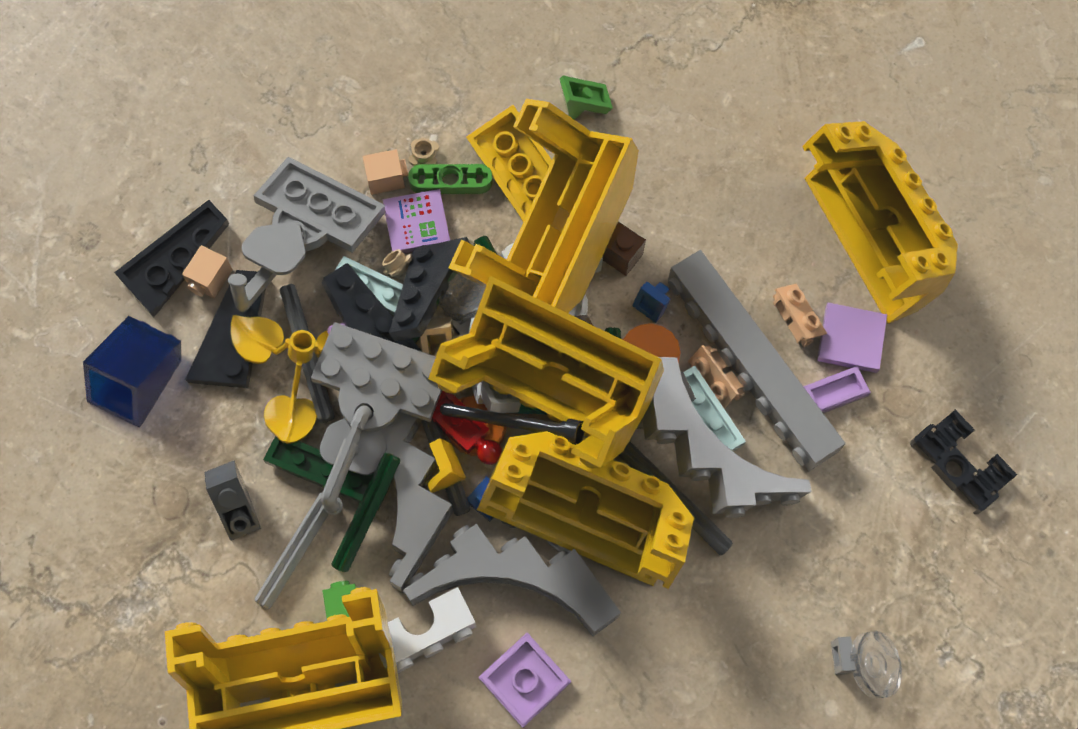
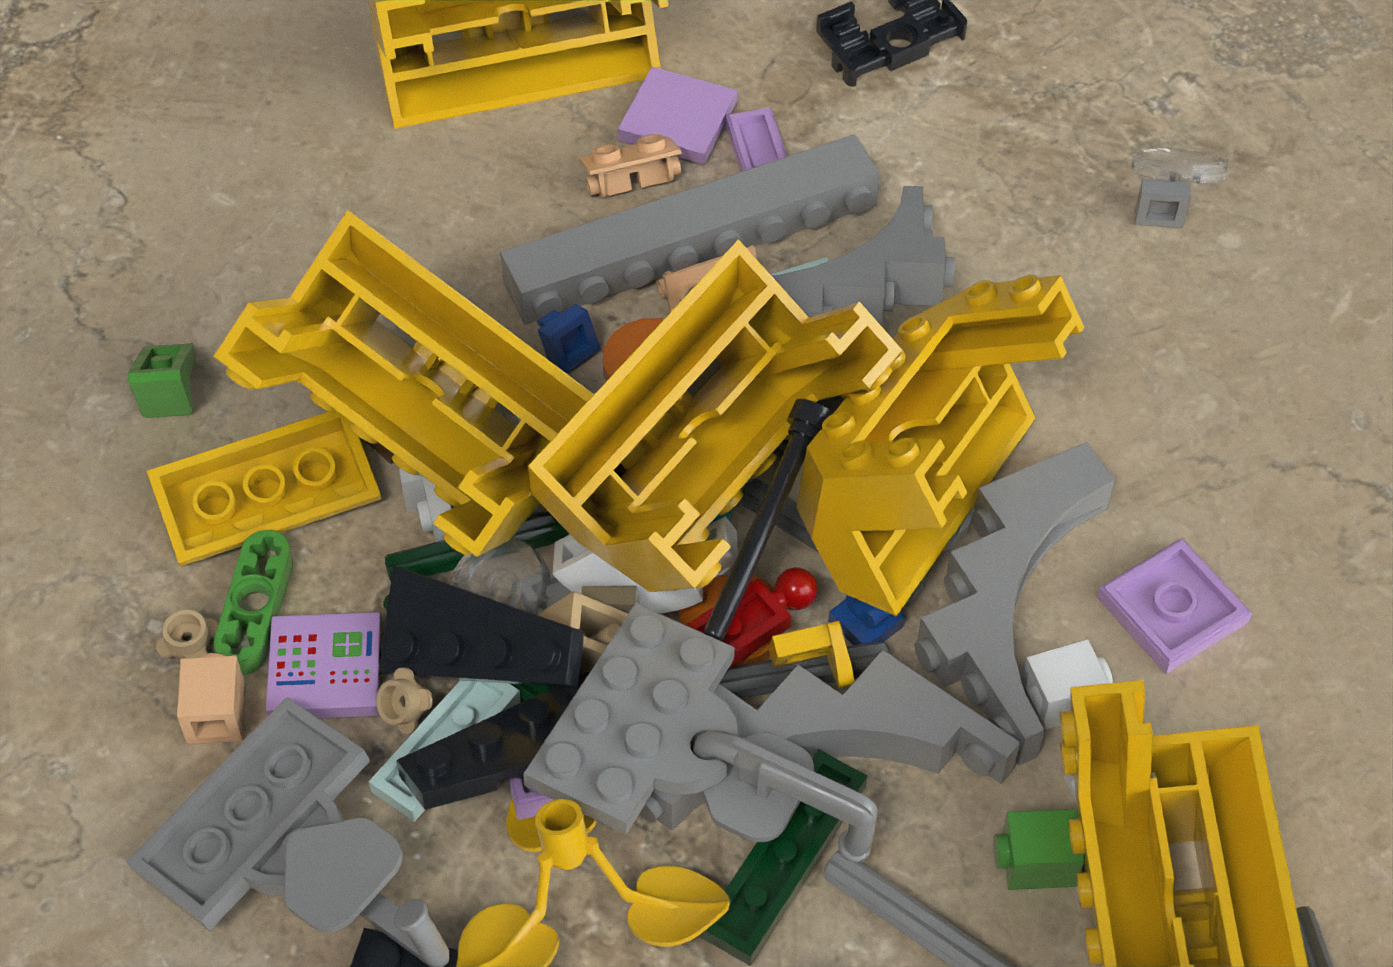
camera: 80 degrees left, 15 degrees down
(298, 322) = (522, 875): dark grey axle -> none
(365, 512) = (874, 783): dark green axle -> none

